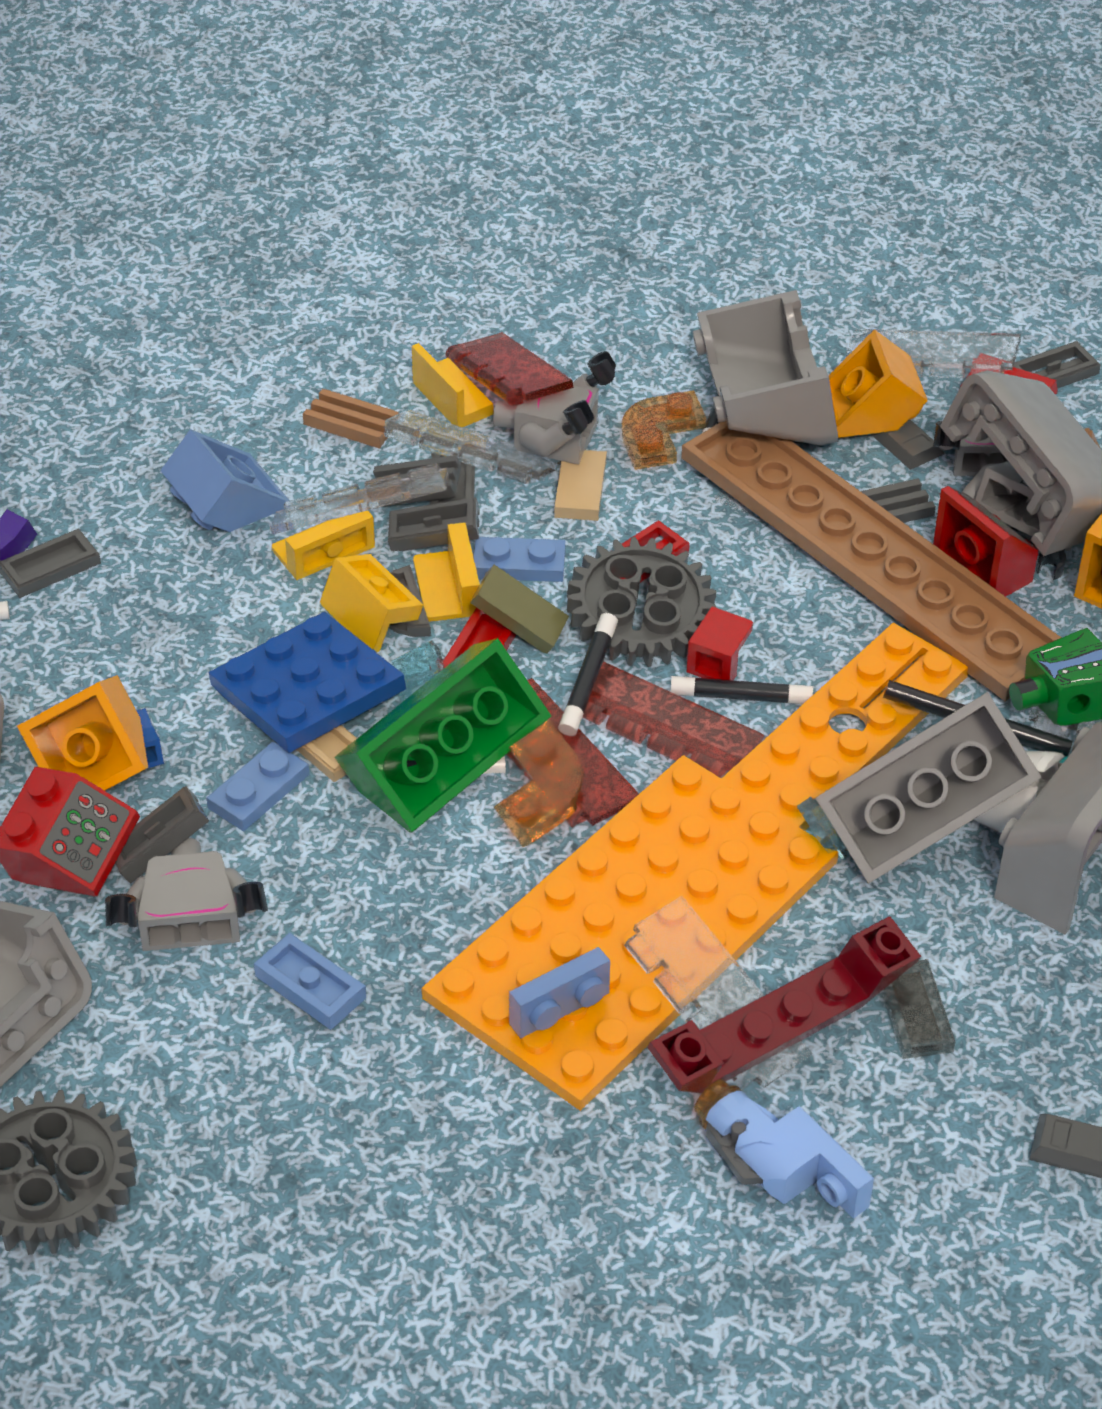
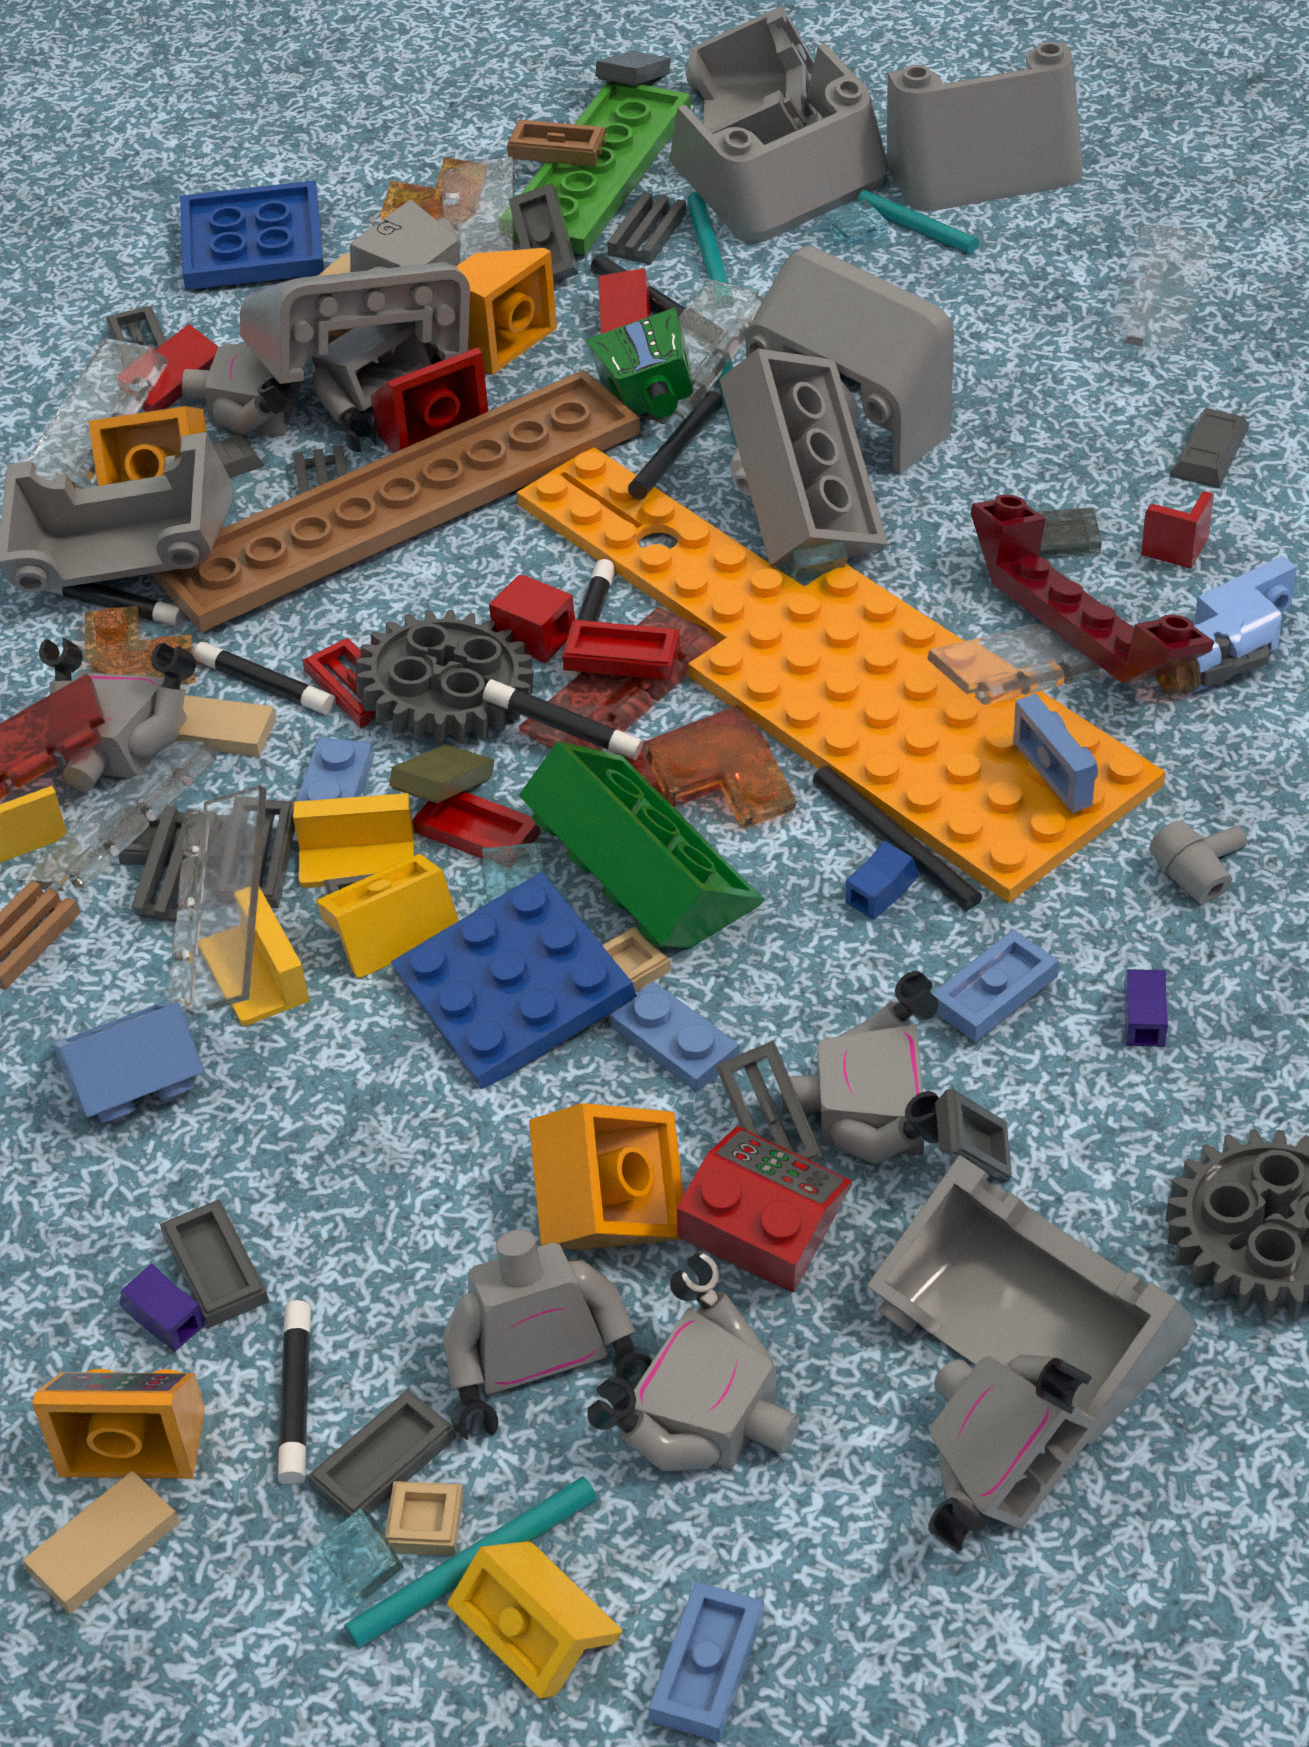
camera: 80 degrees left, 0 degrees up
(116, 954) = (974, 1134): none -> dark grey tile
(289, 1086) = (1145, 1007): none -> dark purple piece
(429, 901) = (880, 880): none -> blue piece
(469, 1116) = (1194, 859): none -> light grey piece
(483, 917) = (886, 829): none -> black bar
(640, 502) = (264, 678): none -> black bar
(685, 705) = (621, 649): none -> red tile
(926, 1112) = (1175, 534): none -> red panel

